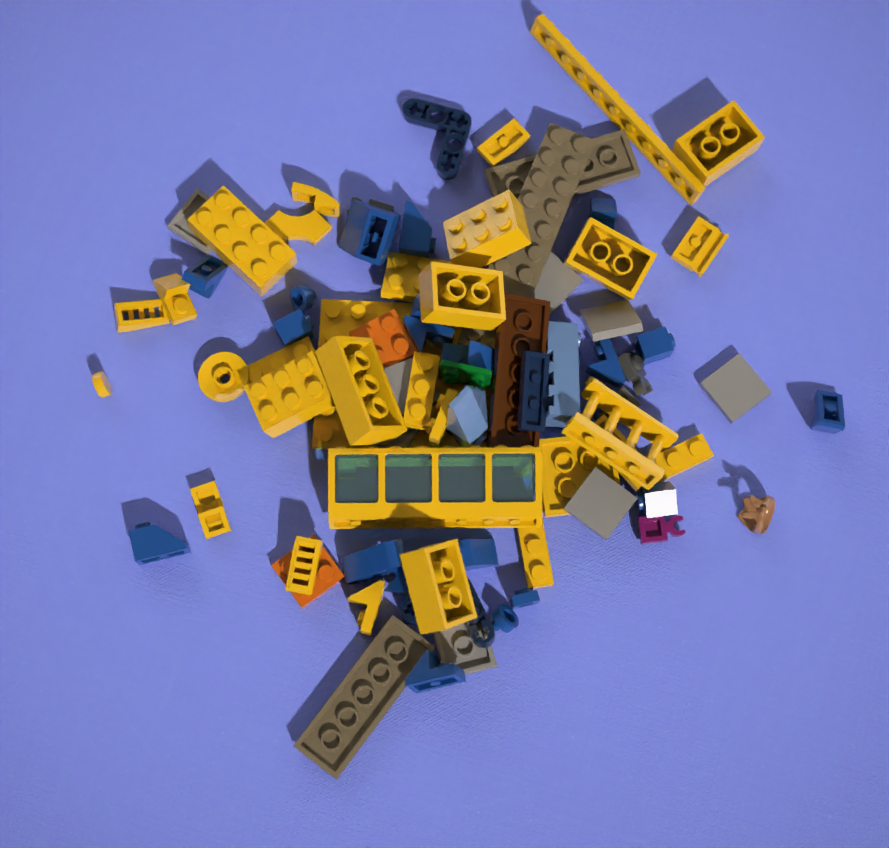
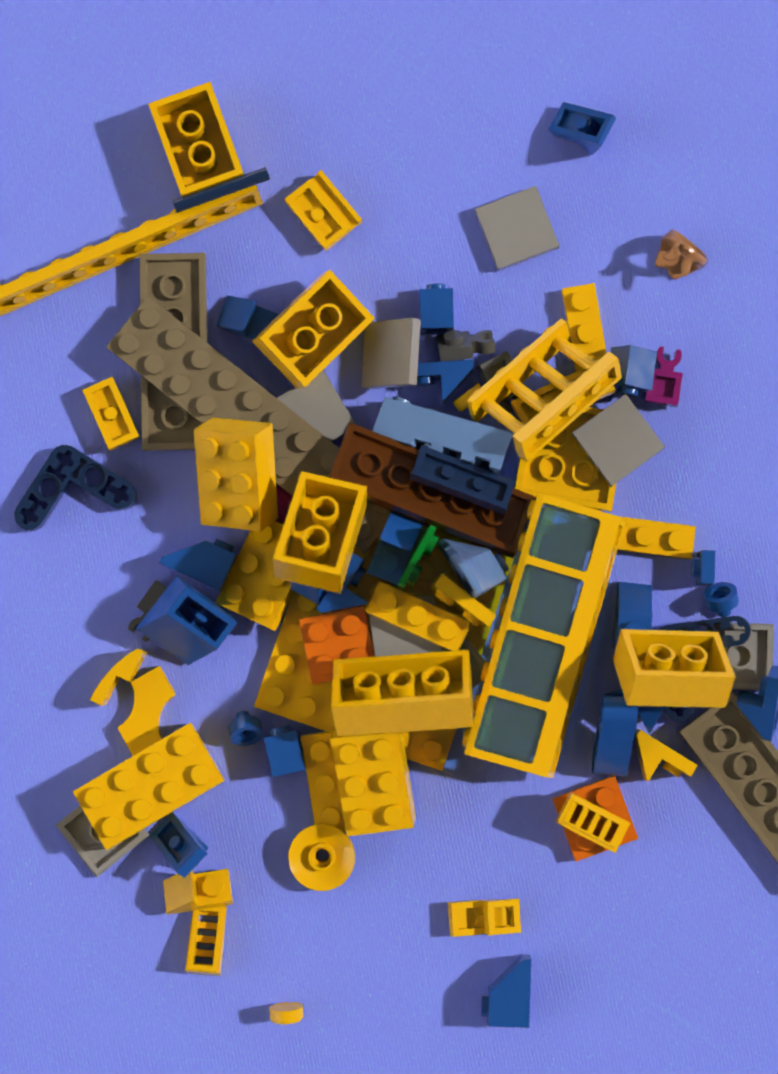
camera: 65 degrees left, 10 degrees up
(689, 167) = (220, 190): none -> dark blue bar

